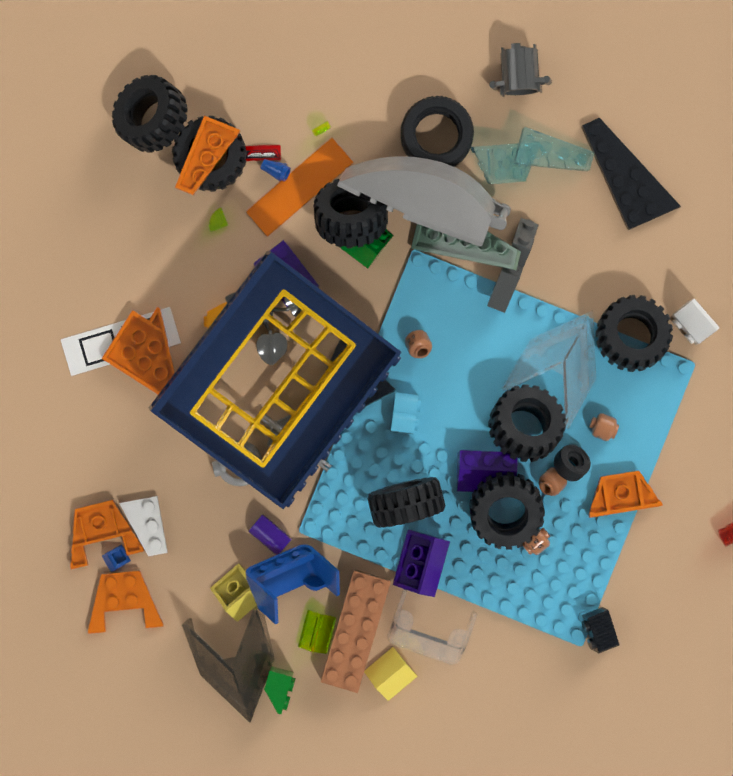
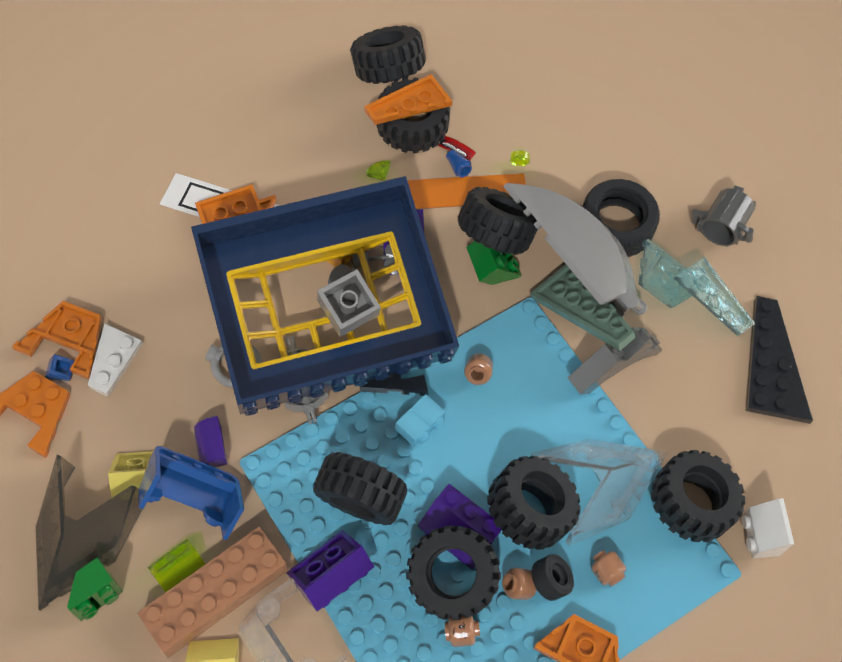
camera: 30 degrees right, 25 degrees down
(307, 386) = (348, 303): none -> light grey brick

